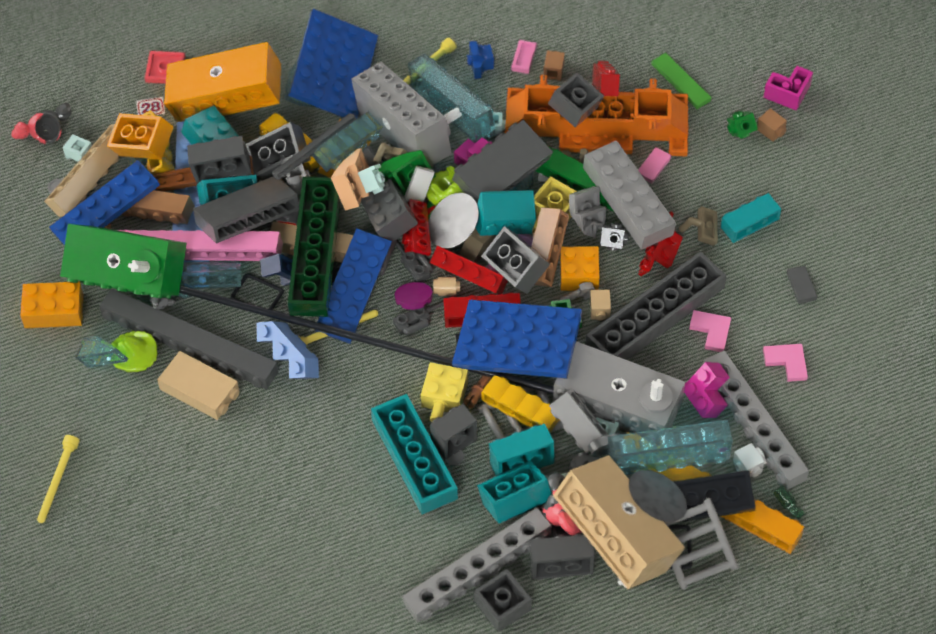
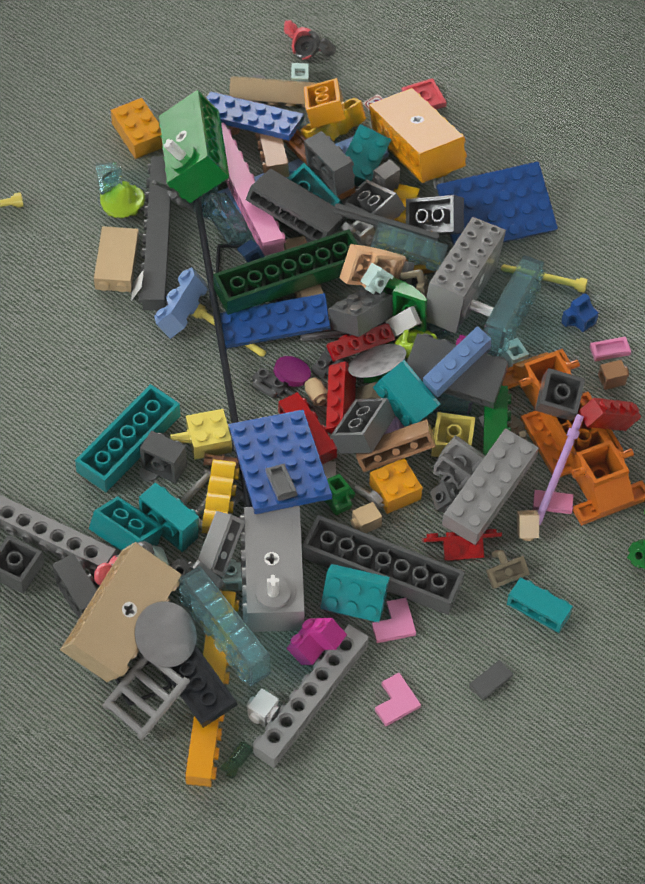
camera: 60 degrees right, 0 degrees up
(244, 377) = (137, 285): none -> white sticker
(249, 127) = (387, 175): none -> light grey brick
(321, 109) = (437, 214): none -> dark grey brick
(505, 153) = (457, 361): none -> medium blue brick
(550, 341) = (281, 482): none -> dark grey tile
(617, 110) = (572, 434): none -> lavender bar
(671, 189) = (528, 524): none -> tan brick
(677, 341) = (354, 593): none -> teal brick

